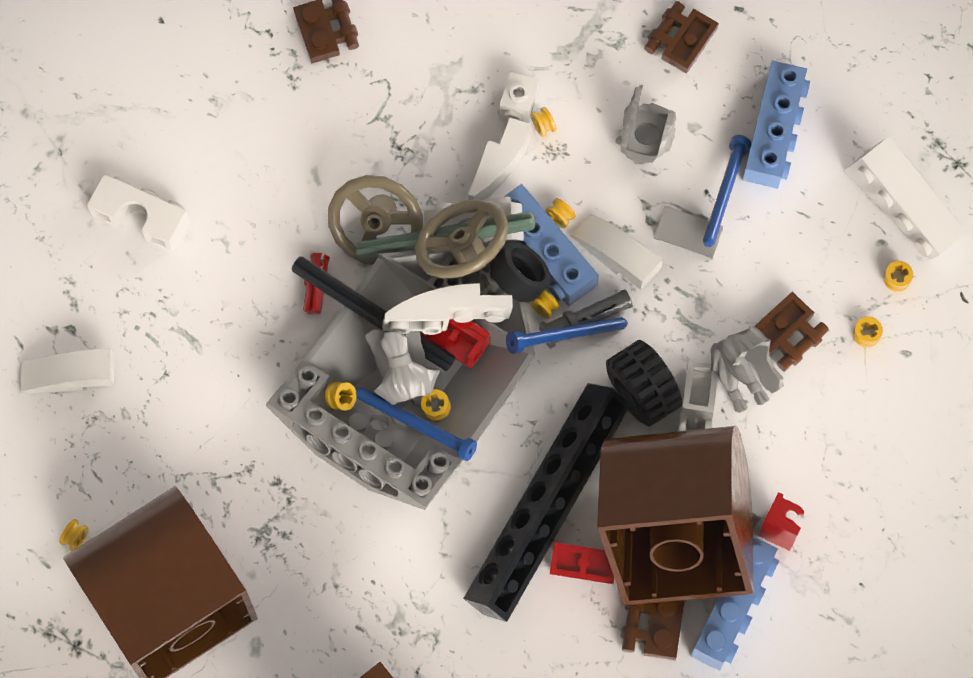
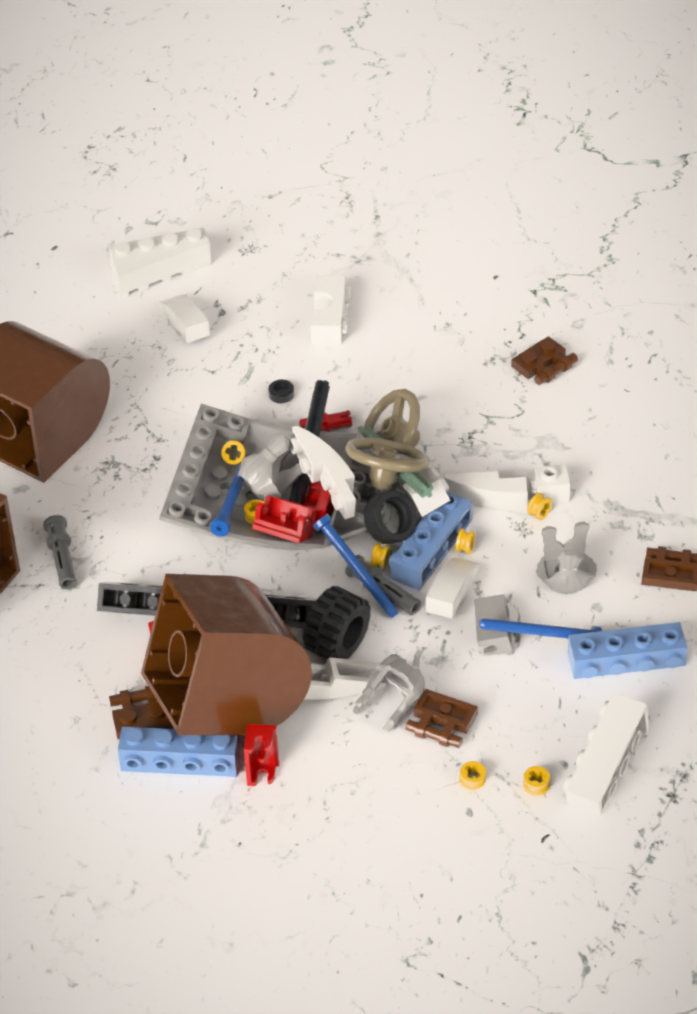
camera: 70 degrees right, 25 degrees down
(238, 312) = (281, 391): none -> black tile
(371, 630) = (59, 543): none -> dark grey pin
(476, 379) = (285, 519): none -> red hinge

